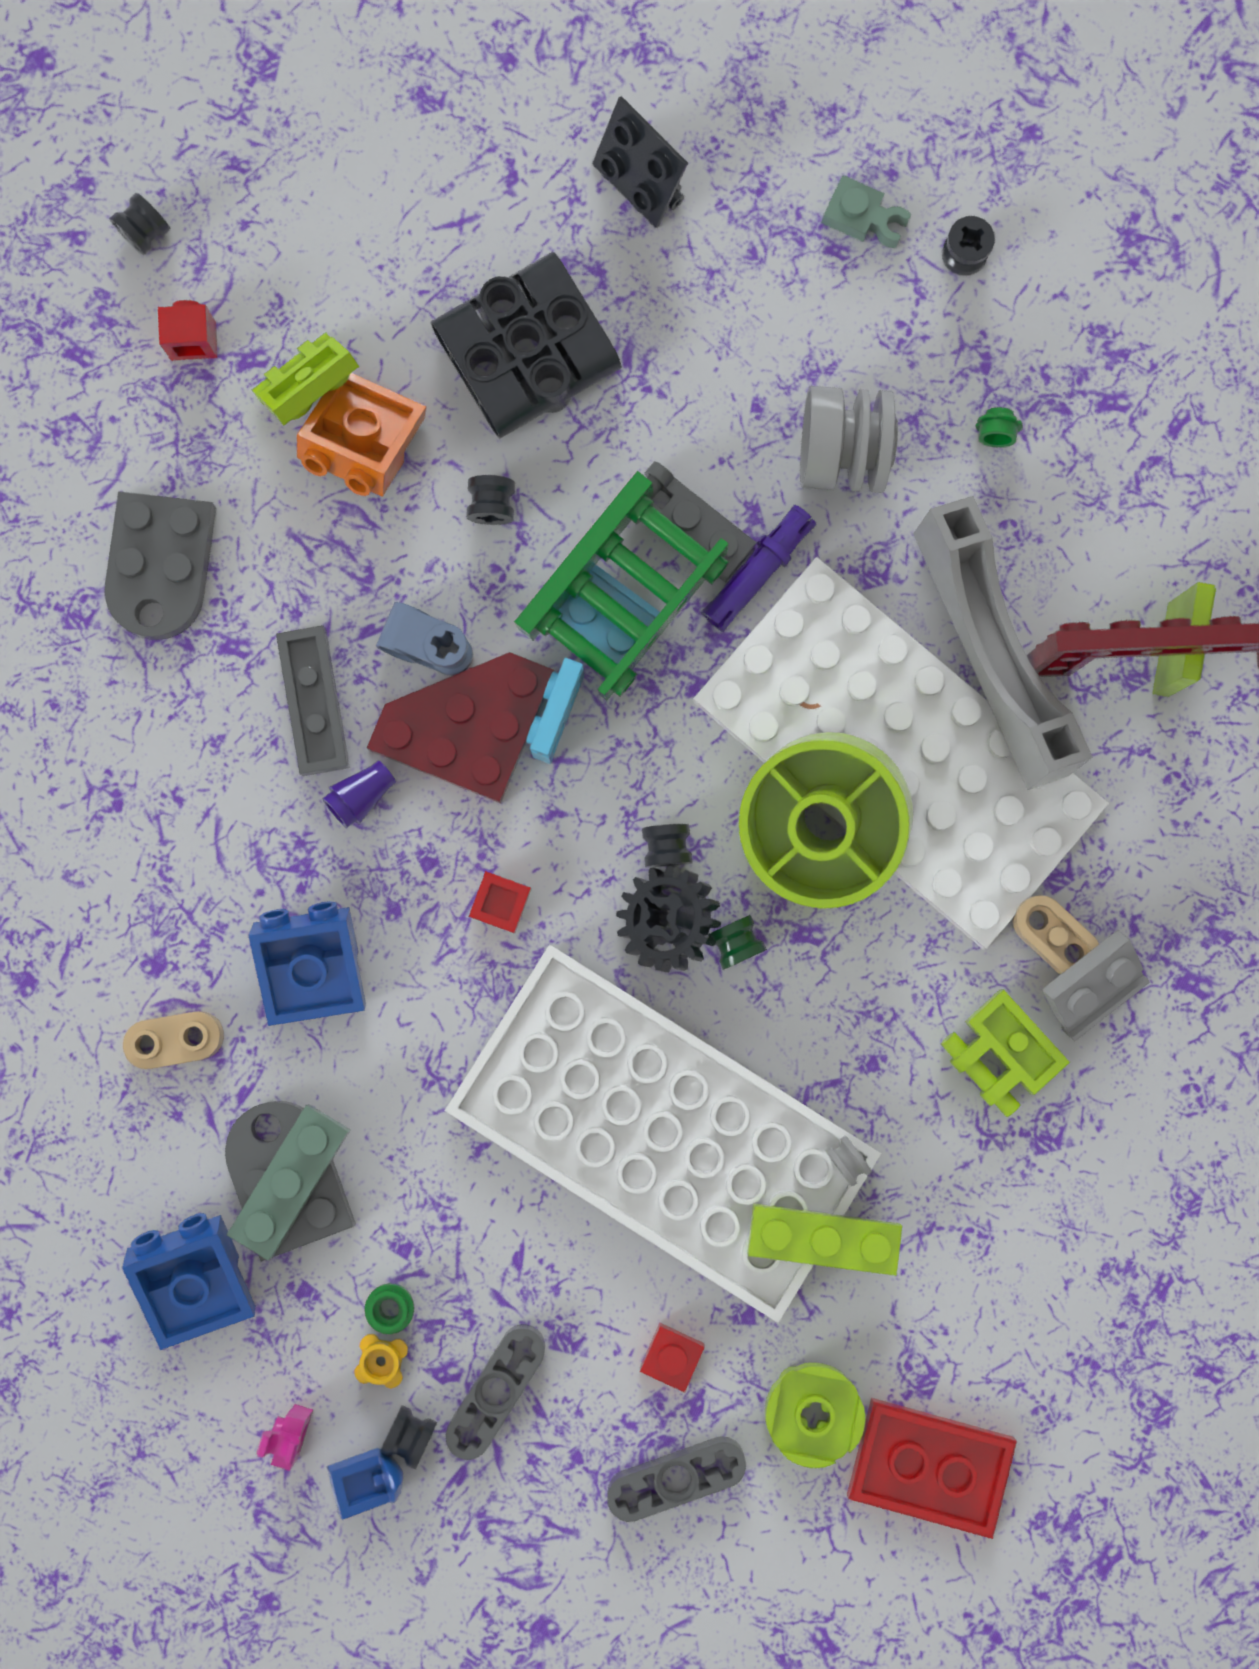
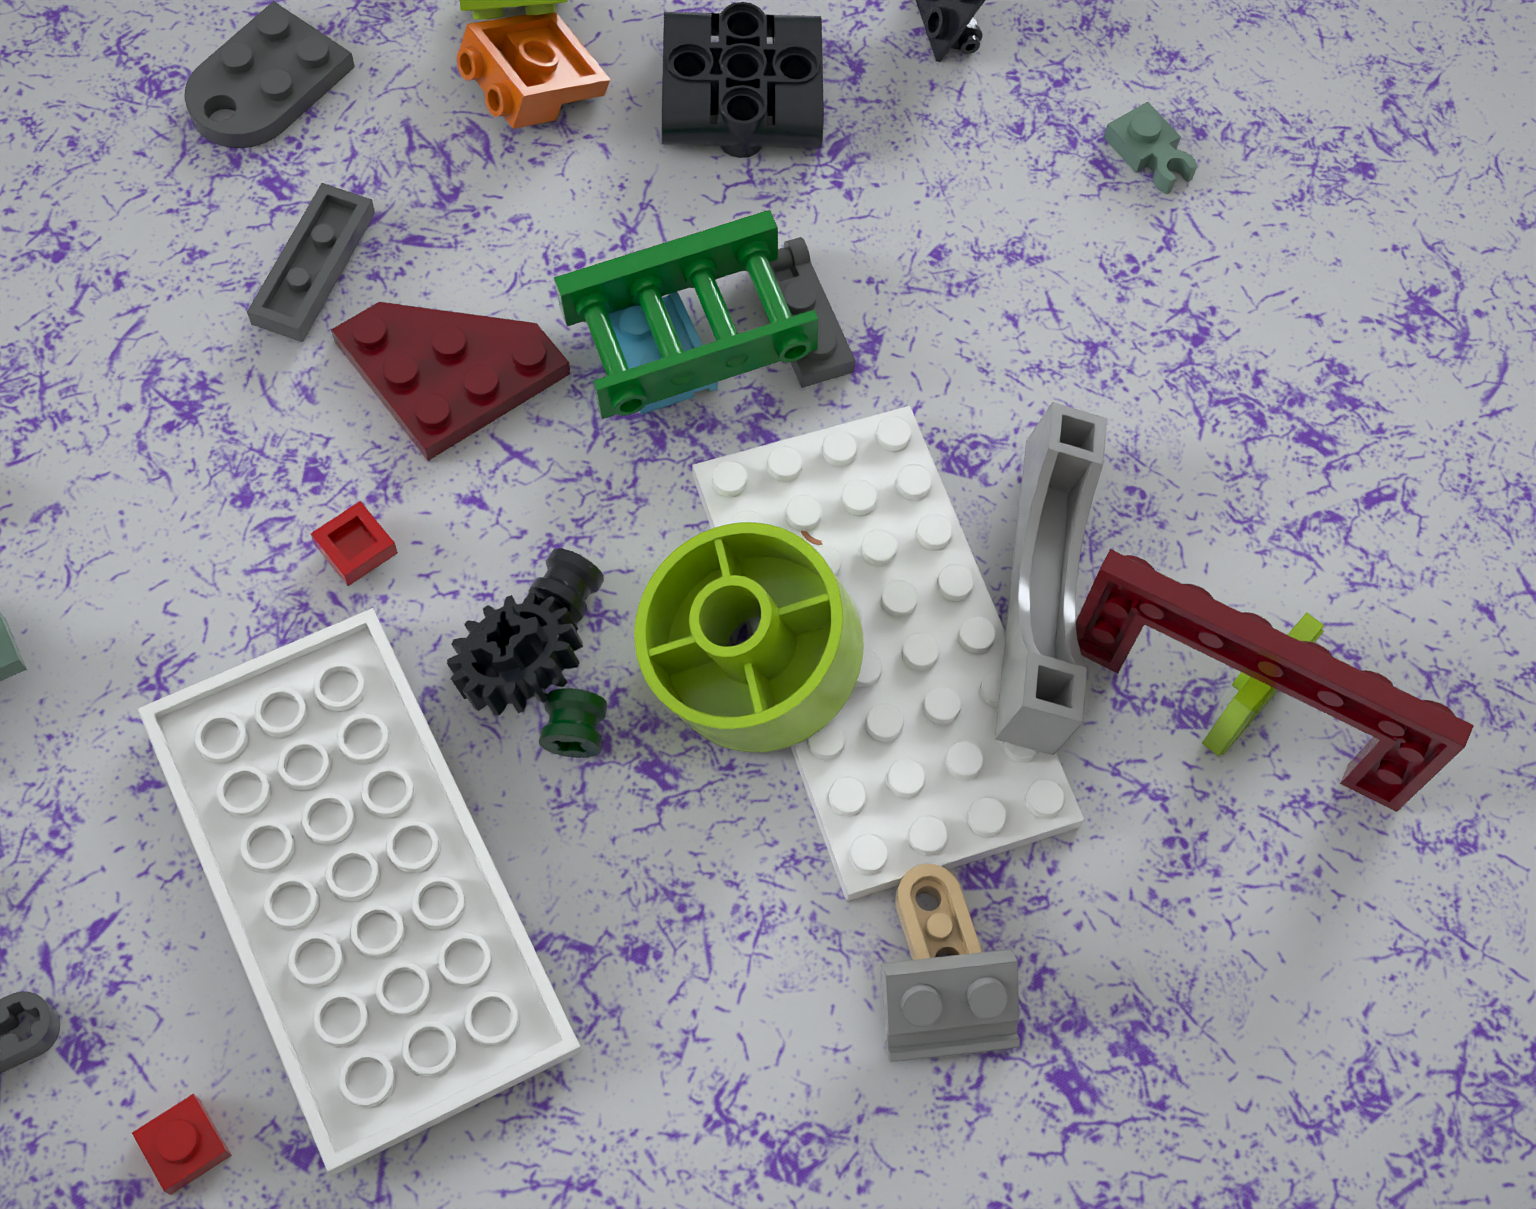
camera: 30 degrees right, 20 degrees down
(307, 964) = (113, 486): blue plate -> none
(358, 794) = (291, 365): dark purple cone -> none
(418, 637) = (460, 268): sand blue piece -> none
(490, 500) = (614, 184): black wheel -> none
(561, 695) = (542, 393): medium azure plate -> none
(766, 559) = (843, 384): dark purple pin -> none
(824, 1239) = (447, 1101): lime plate -> none
(847, 439) = (997, 301): light grey wheel -> none
(848, 1161) = (532, 1020): light grey bush -> none
(967, 257) = (1229, 228): black wheel -> none
(998, 427) = (1176, 392): green plate -> none
(1015, 1042) = (818, 1019): lime plate -> none

